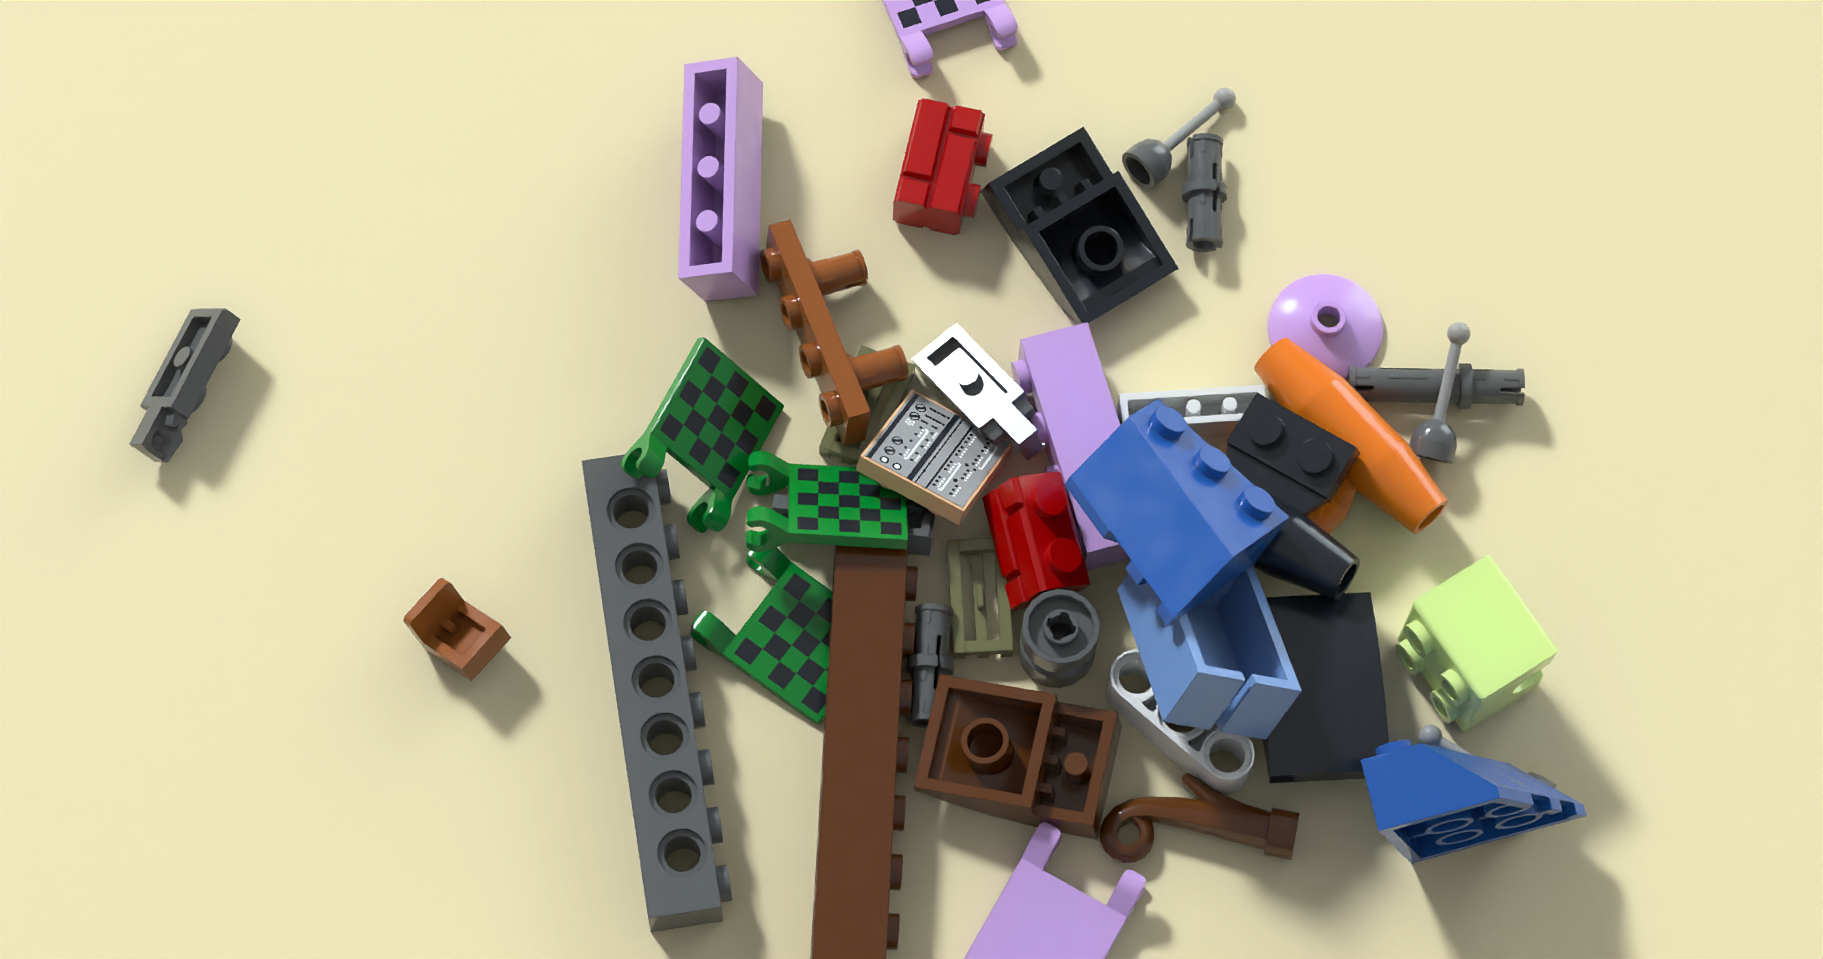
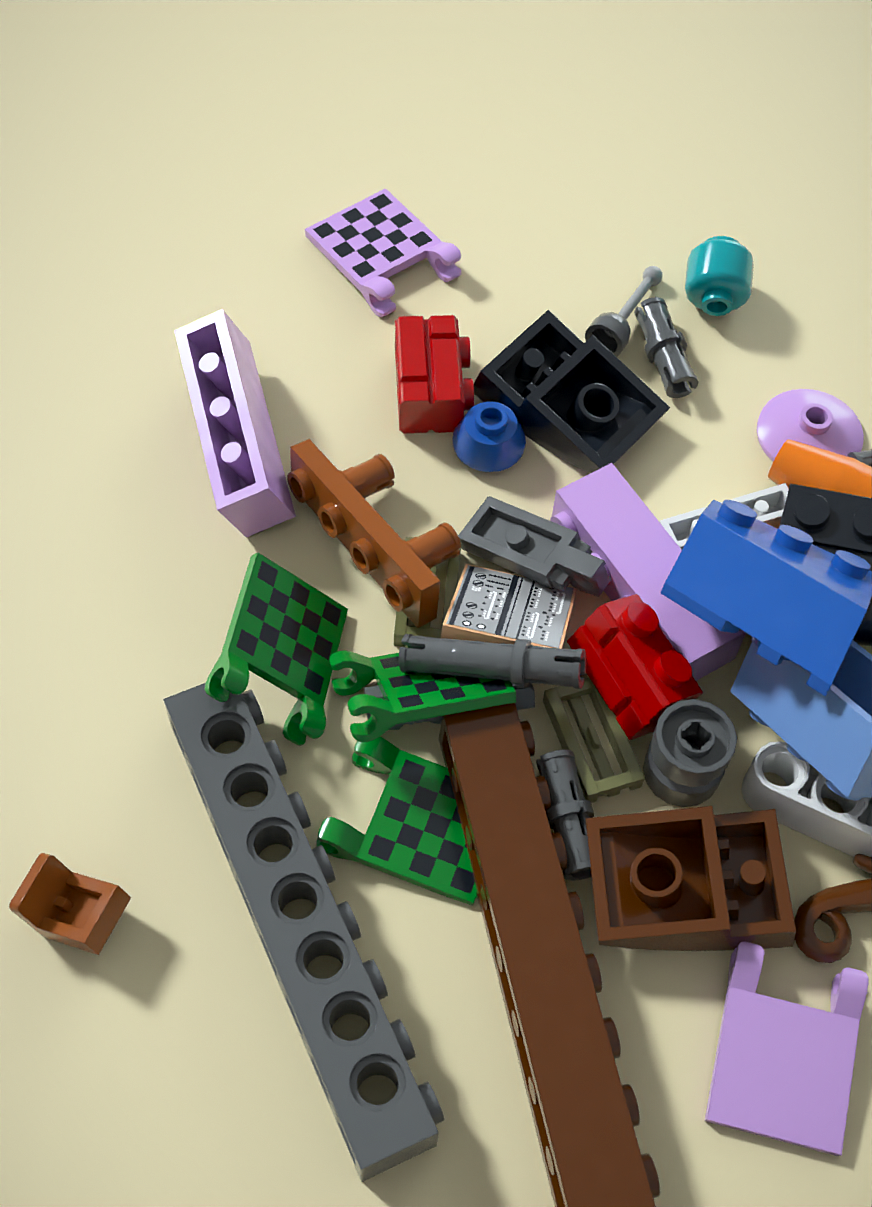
camera: 15 degrees left, 10 degrees down
(918, 513) = (497, 661): none -> dark grey pin
(980, 256) = (489, 438): none -> blue cone
(1290, 123) = (719, 274): none -> teal head

